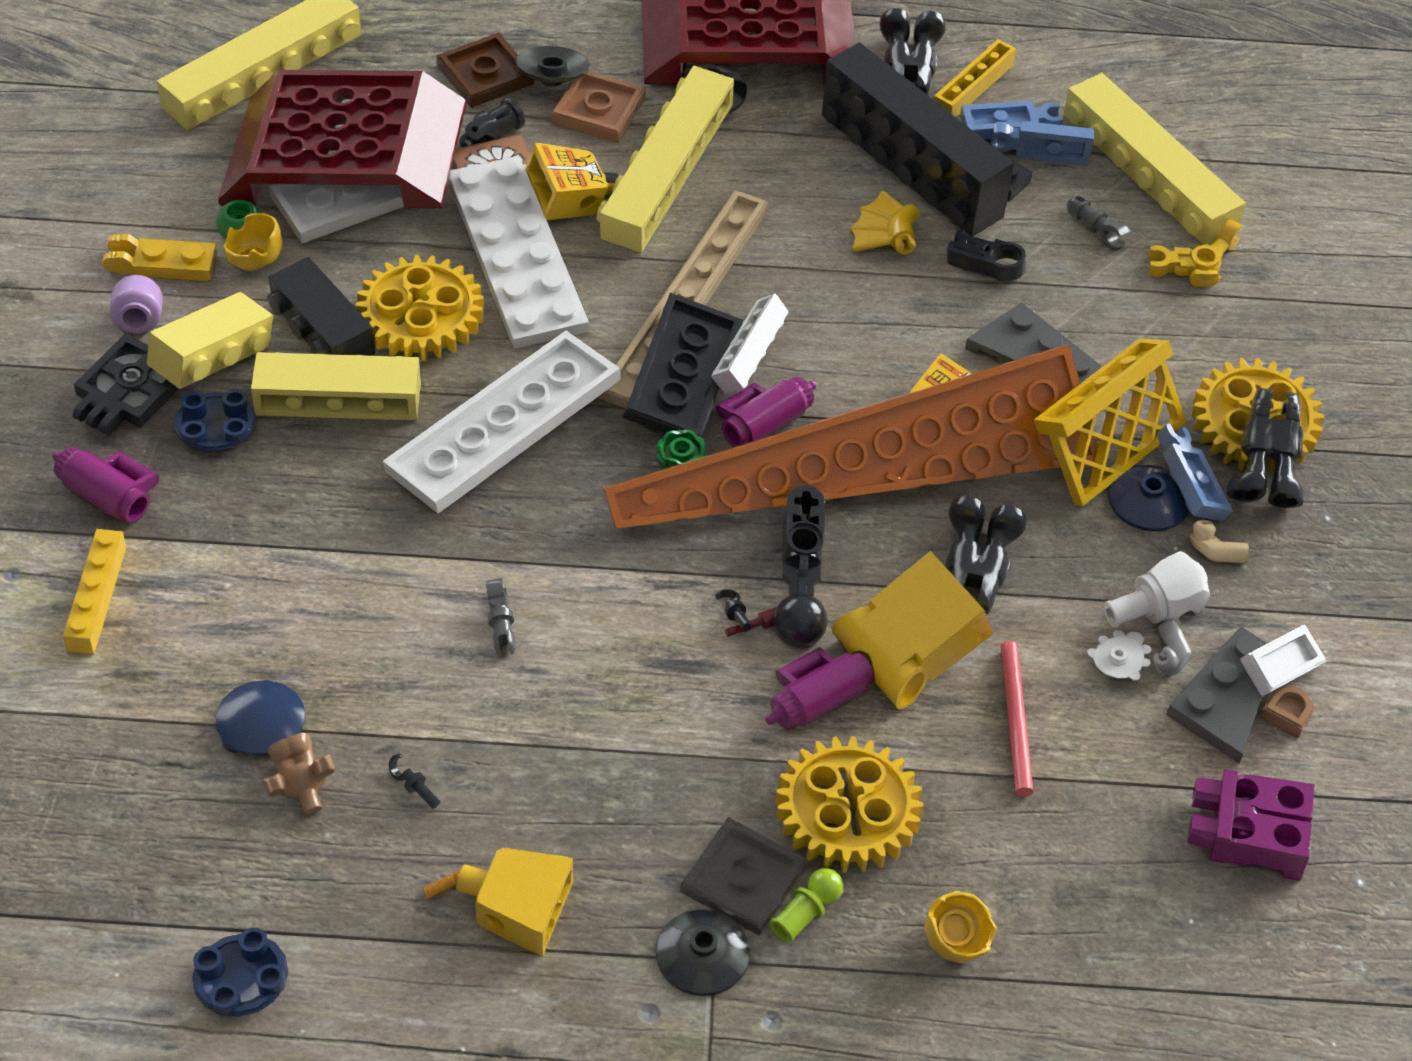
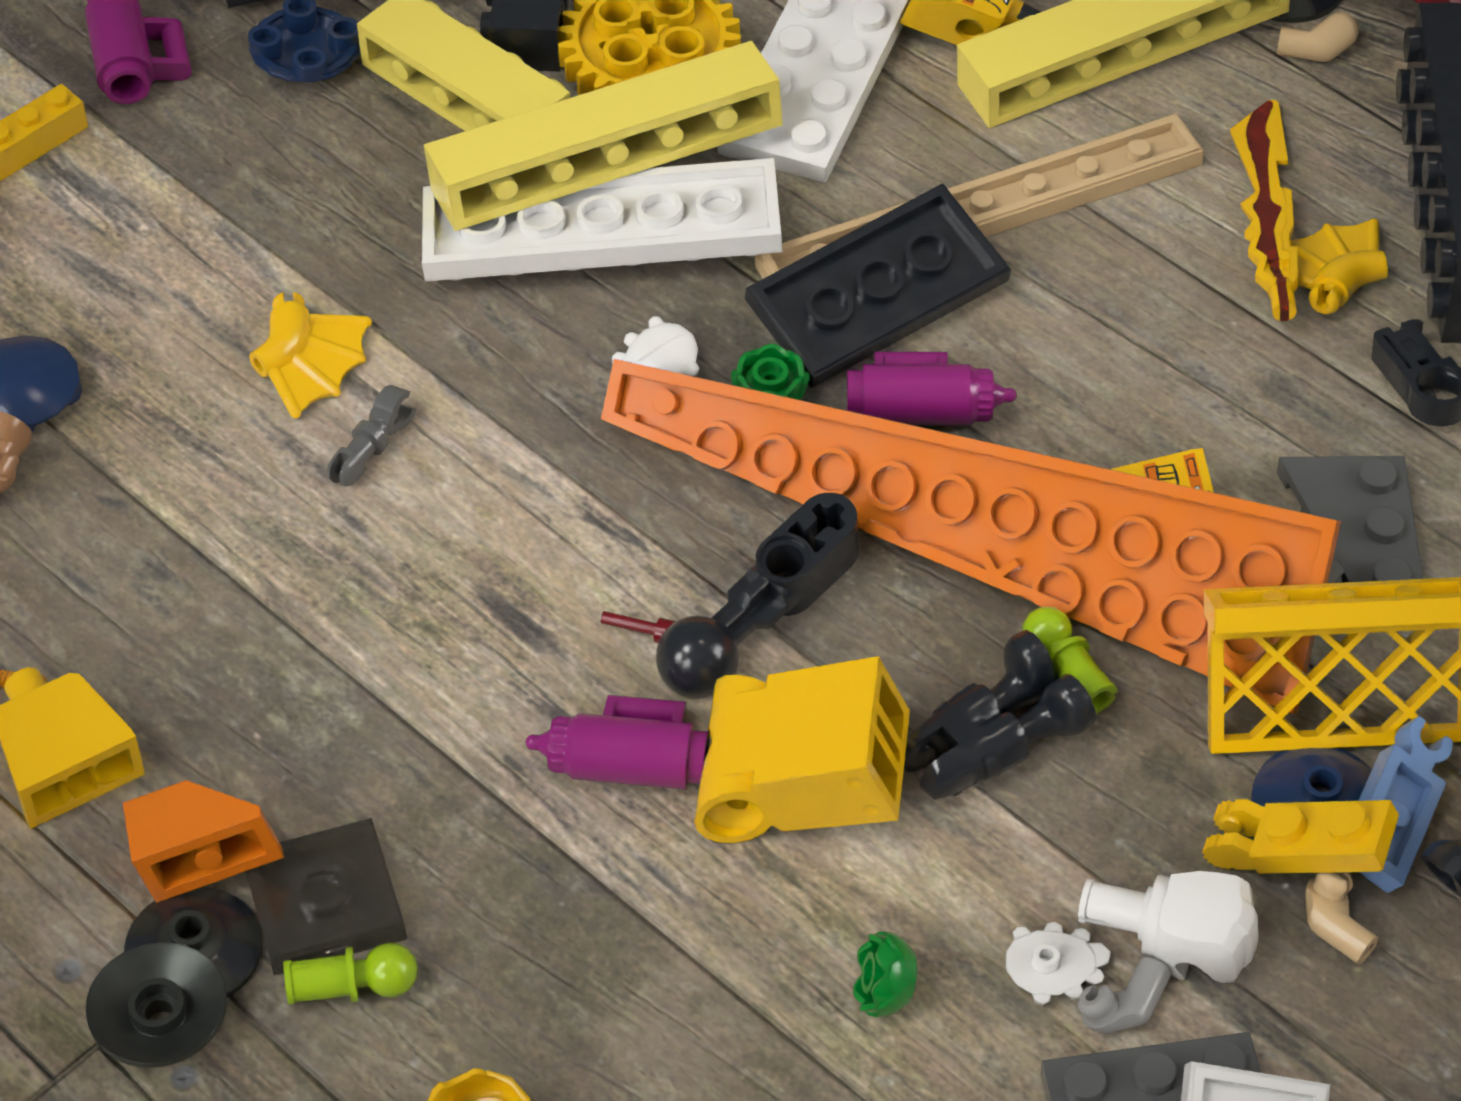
camera: 45 degrees right, 0 degrees up
(411, 594) = (308, 352): none -> yellow arm
(414, 781) = (94, 552): black hand -> none
(467, 371) = (603, 135): none -> light yellow brick
(601, 472) = (662, 347): none -> white piece
(658, 889) = (195, 838): none -> orange slope
(735, 609) = (638, 594): black hand -> none
(735, 974) = (149, 982): none -> pearl dark grey dish
(750, 344) = (986, 303): white piece -> none
(765, 112) = (1323, 41): none -> tan arm
(829, 213) = (1270, 208): none -> yellow sword
(889, 798) = (567, 921): yellow gear -> none
(955, 488) = (1070, 654): none -> lime pin
(1016, 719) = (835, 945): coral bar -> none
(1059, 715) = (886, 975): none -> green plate
(1176, 515) = (1302, 836): none -> yellow hinge

